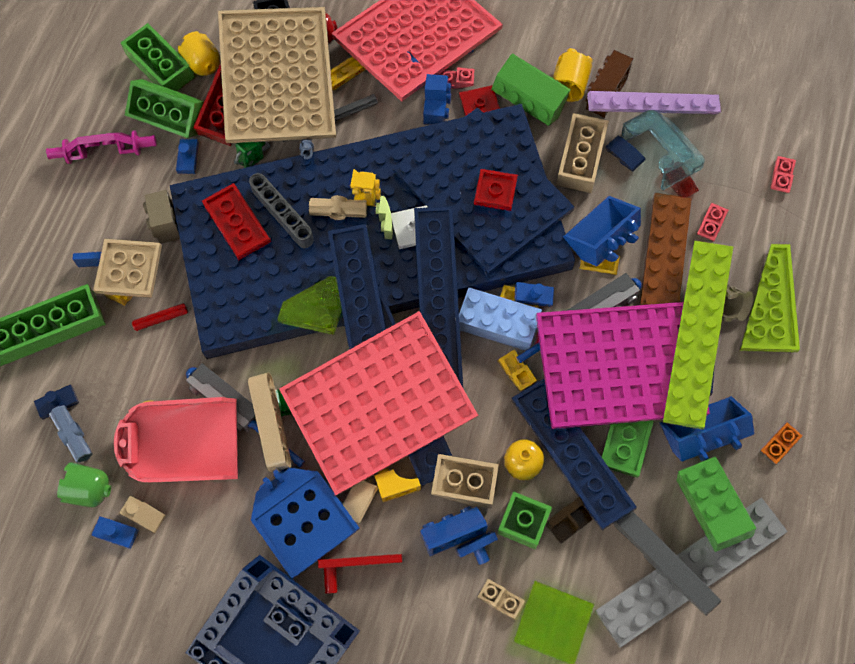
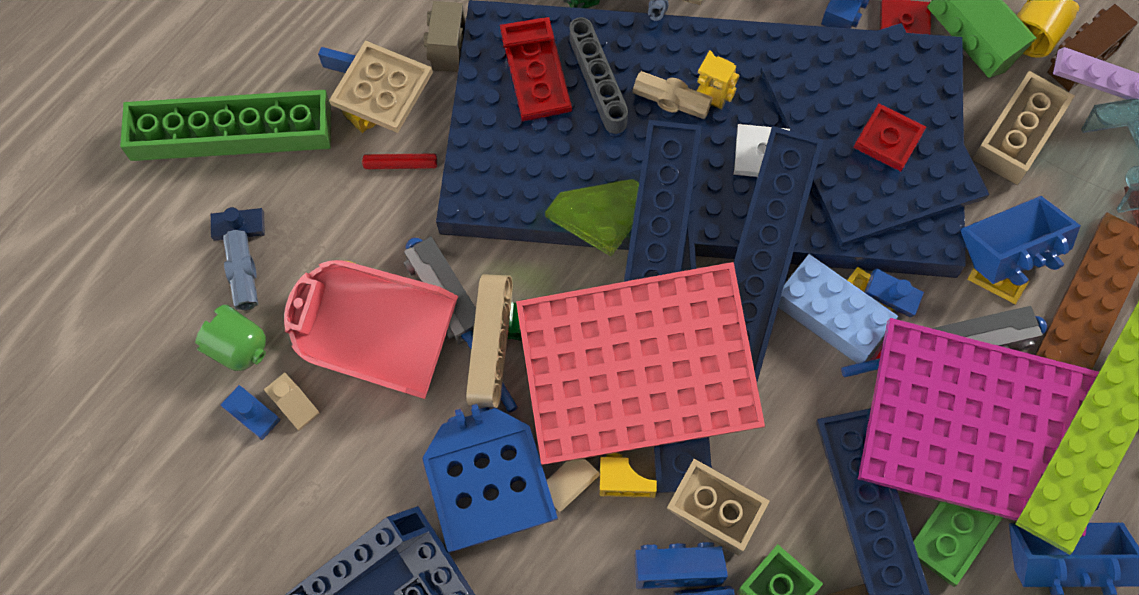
camera: 20 degrees right, 0 degrees up
(220, 196) = (526, 32): none -> red tile
(330, 565) = (503, 553): red piece -> none
(385, 217) = (730, 121): yellowish green slope -> none
(517, 372) = (837, 390): yellow slope -> none
(524, 459) = (806, 507): yellow cylinder -> none
(625, 152) = (1083, 146): dark blue slope -> none

